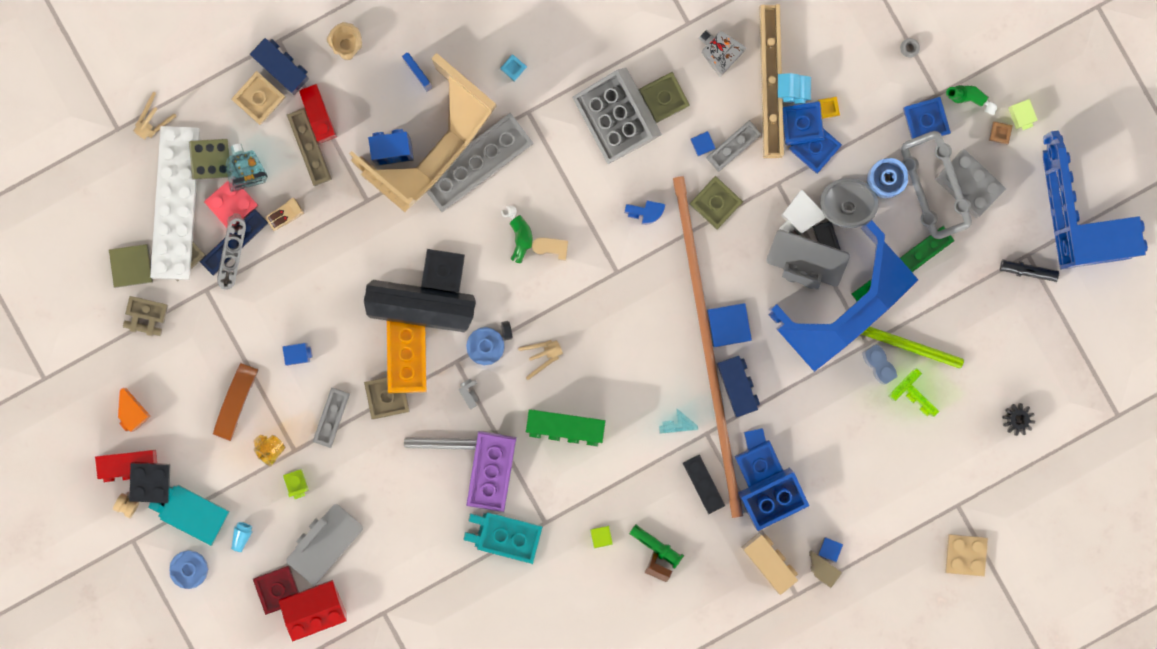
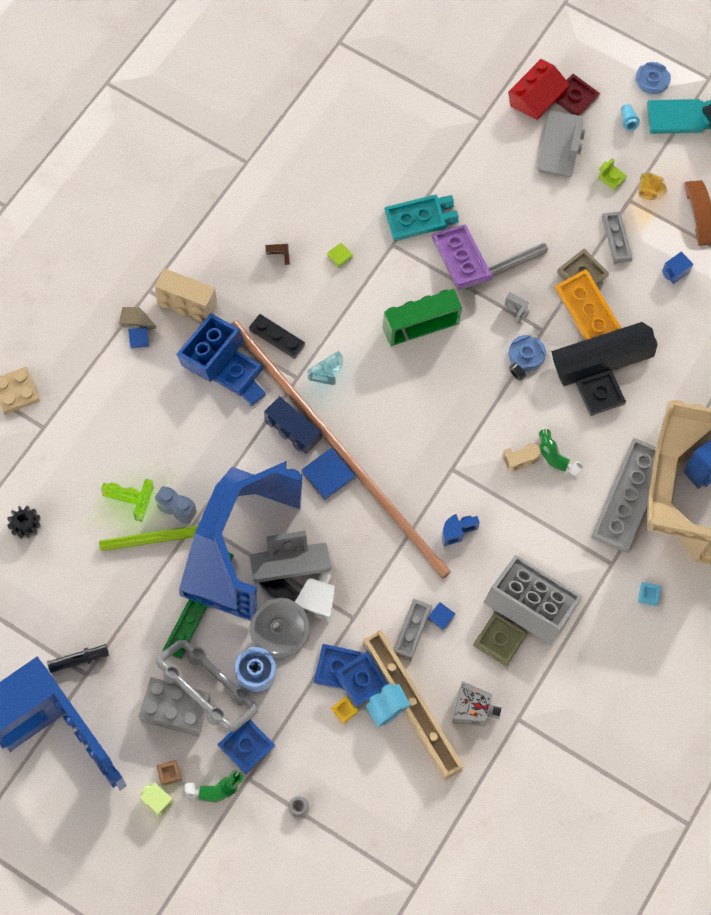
camera: 150 degrees right, 20 degrees down
(552, 350) = (469, 375): tan plant -> none
(663, 551) = (288, 268): green pin -> none
(716, 202) = (399, 571): olive tile -> none

